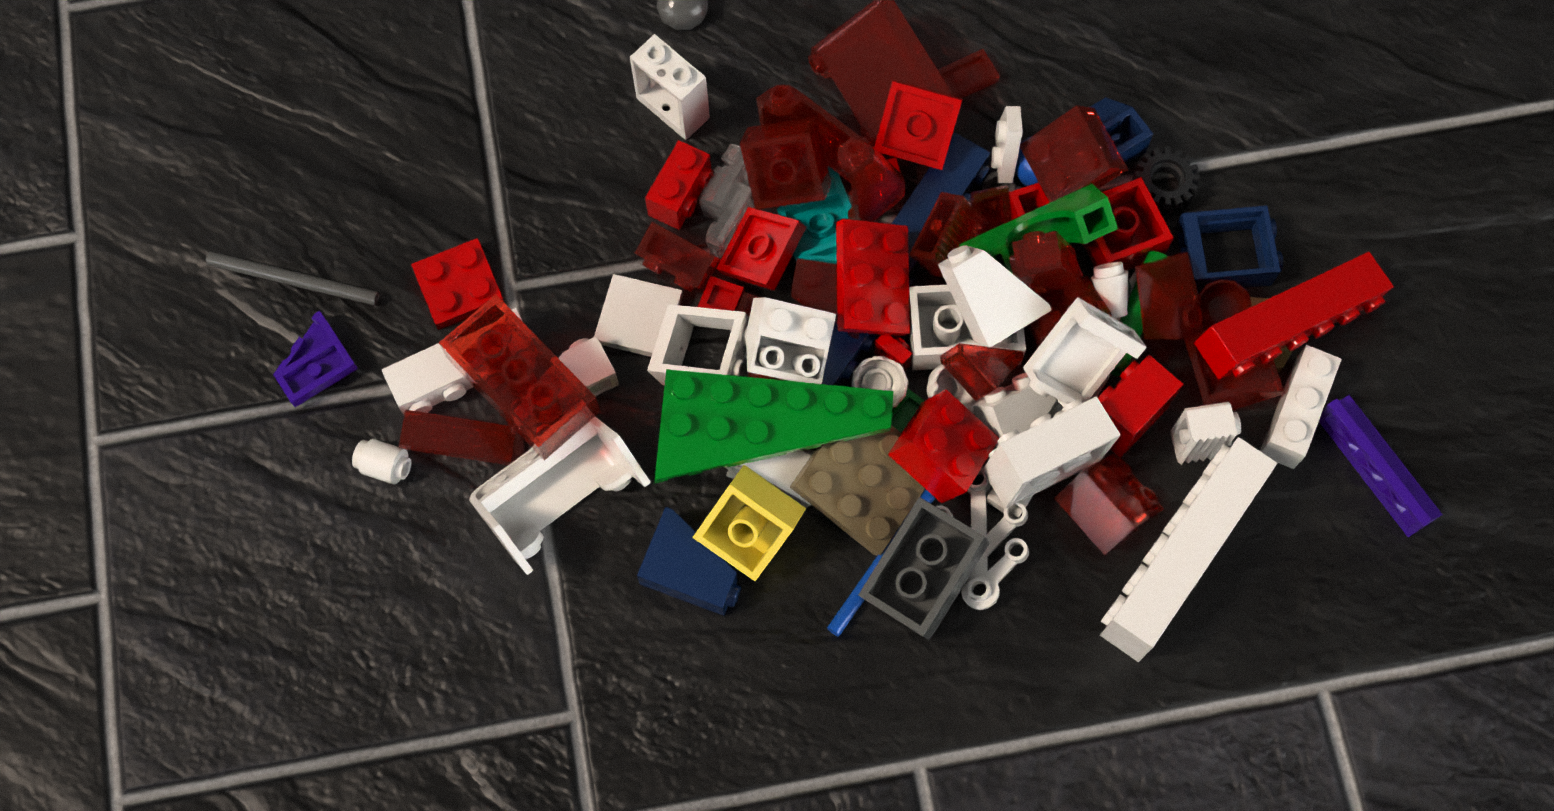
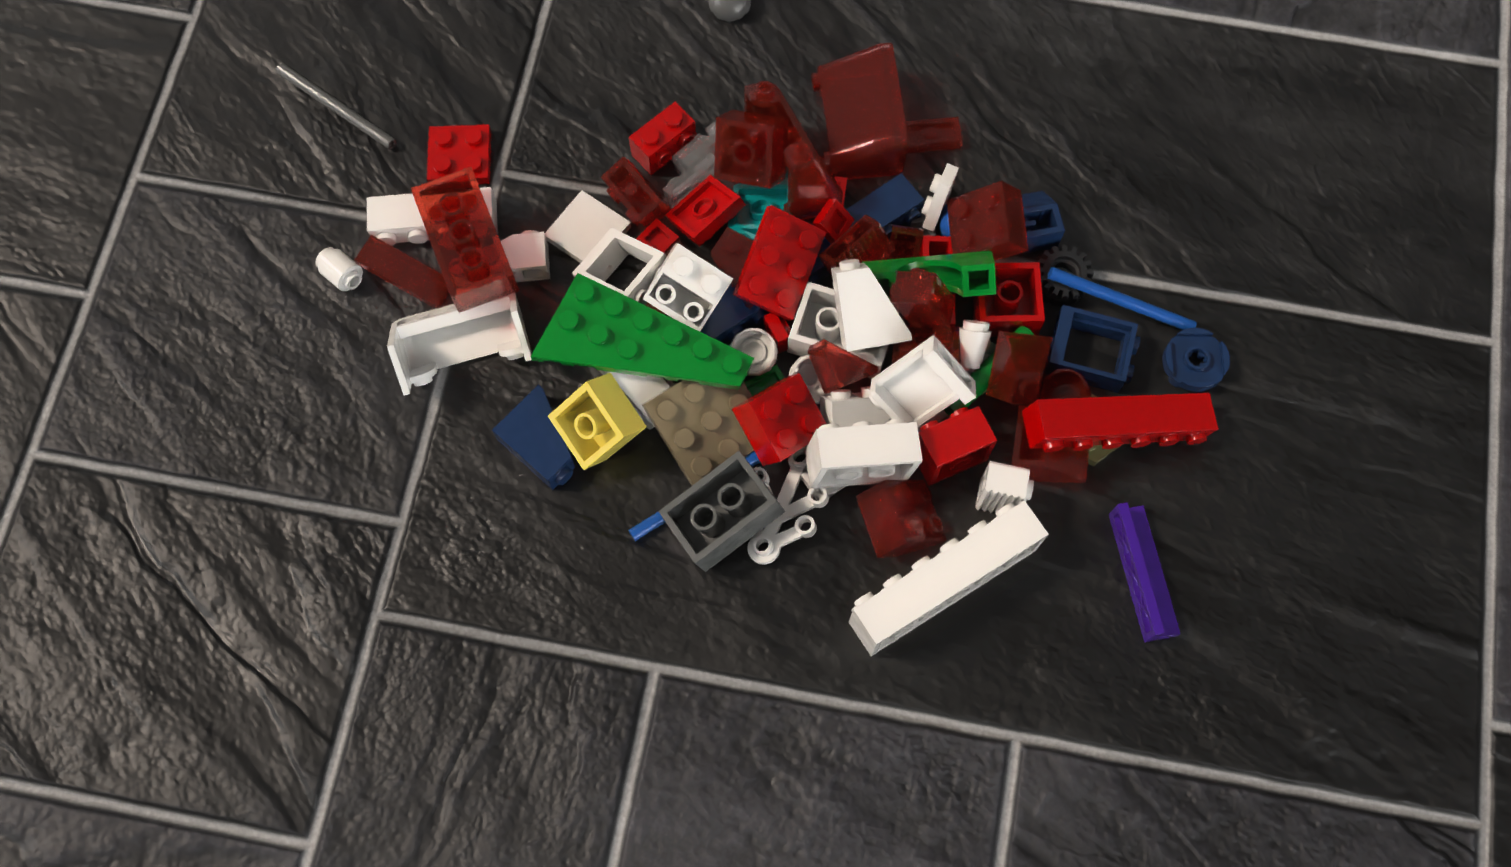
camera: 20 degrees right, 0 degrees up
(314, 363) = (321, 175): dark purple wing -> none
(669, 80) = (688, 55): white window -> none
(908, 210) = (833, 219): none -> red plate
(917, 124) = (870, 154): red plate -> none
(1237, 185) = (1120, 299): none -> blue piece
(1300, 406) = (1095, 499): white brick -> none
(1329, 239) = (1188, 376): none -> dark blue plate

